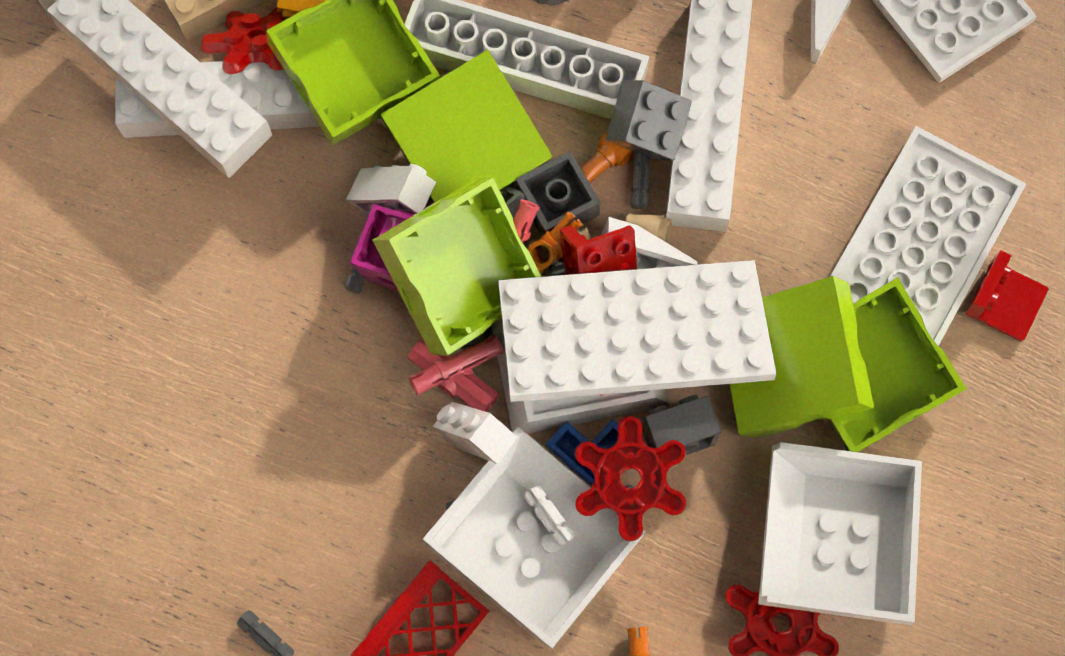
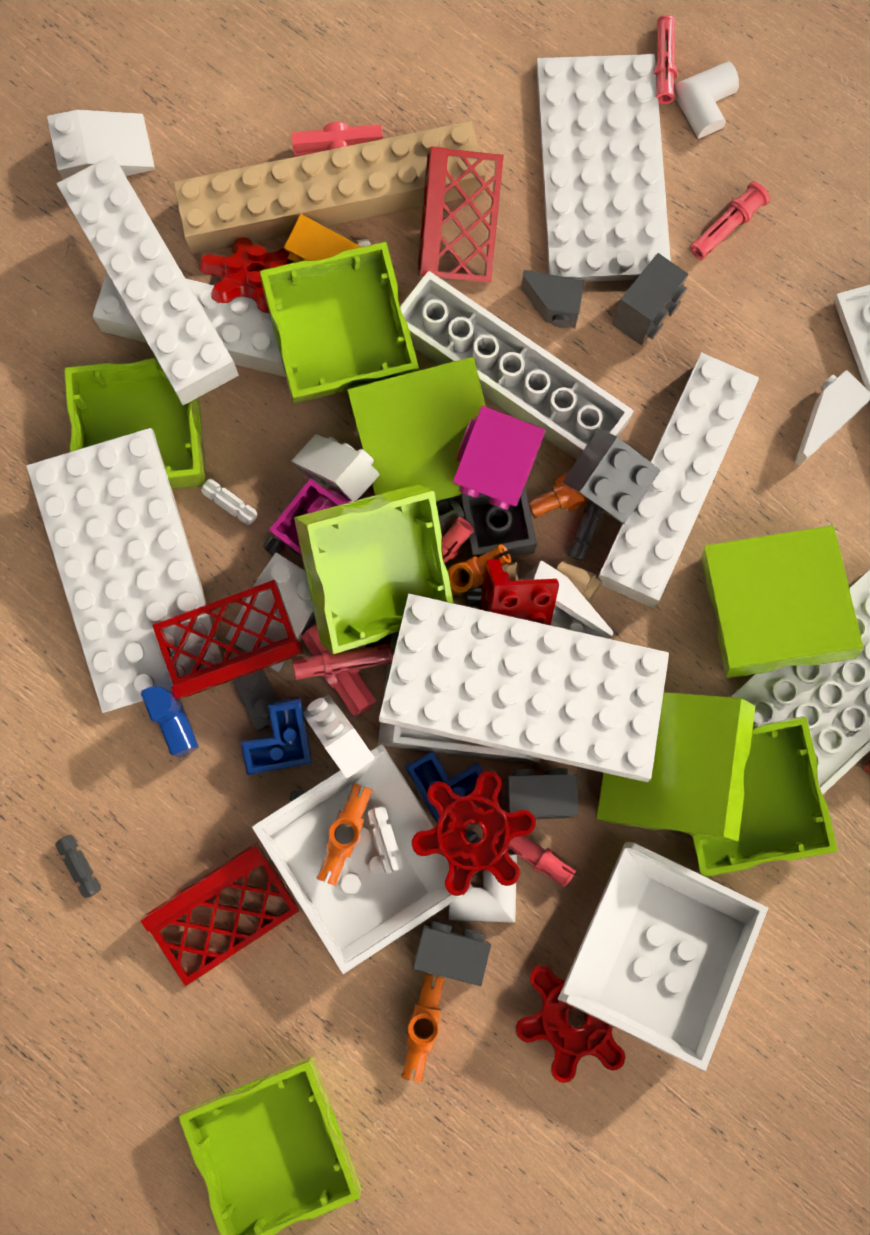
camera: 15 degrees right, 5 degrees up
(185, 218) = (128, 398): none -> lime tile
(224, 346) = (122, 562): none -> white plate
(298, 256) = (229, 502): none -> white axle
(311, 470) = (172, 720): none -> blue brick
(351, 405) = (237, 666): none -> red fence
(377, 343) = (296, 597): none -> white slope
(384, 425) = (256, 694): none -> dark grey plate
(429, 457) = (288, 744): none -> blue brick
(510, 538) = (337, 851): none -> orange pin
(540, 131) = (497, 457): none -> dark pink brick
(647, 598) = (453, 954): none -> dark grey brick
(666, 546) = (486, 903): none -> white brick
(700, 489) = (542, 860): none -> coral pin
(840, 186) = (781, 601): none -> lime tile

